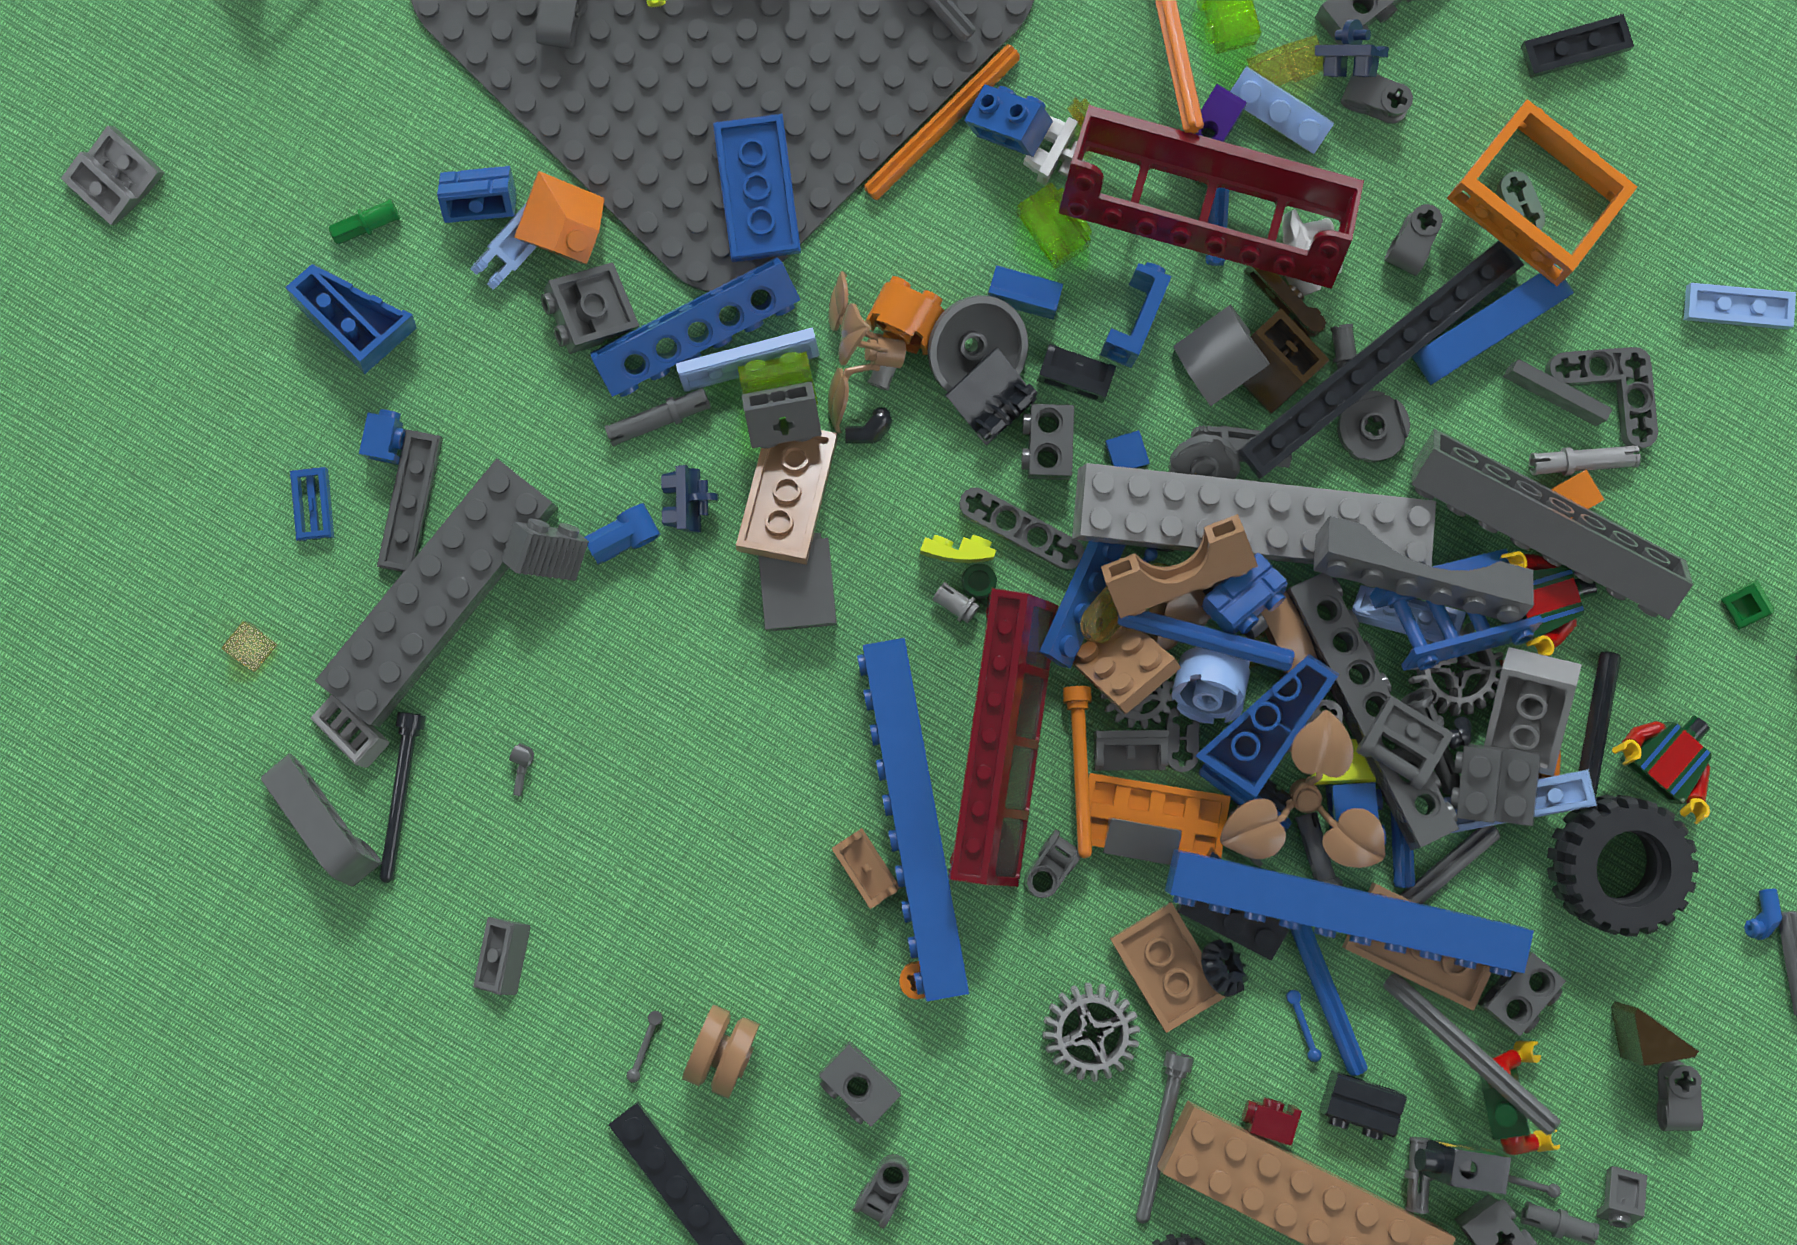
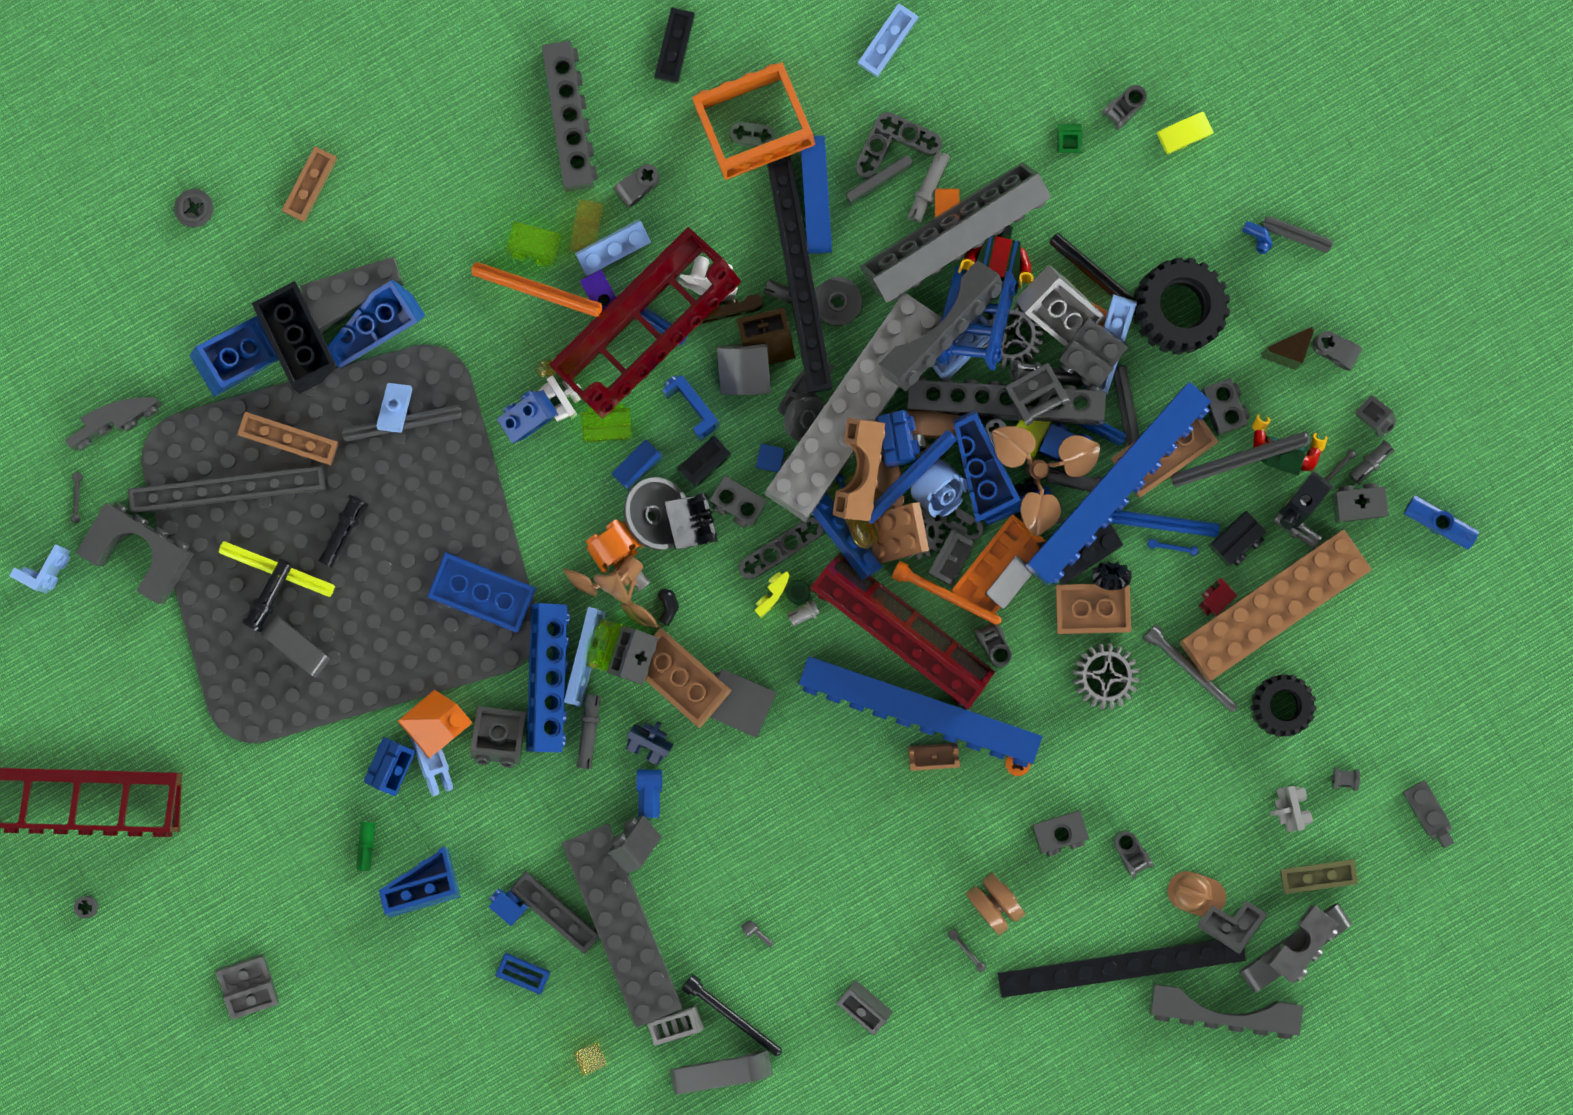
camera: 55 degrees left, 0 degrees up
(940, 123) = (503, 457): orange axle -> none
(1365, 55) = (600, 185): dark blue hips -> none
(1413, 244) = (741, 215): dark grey piece -> none
(1462, 733) = (1050, 355): black arm -> none
(1671, 762) = (1136, 240): torso -> none

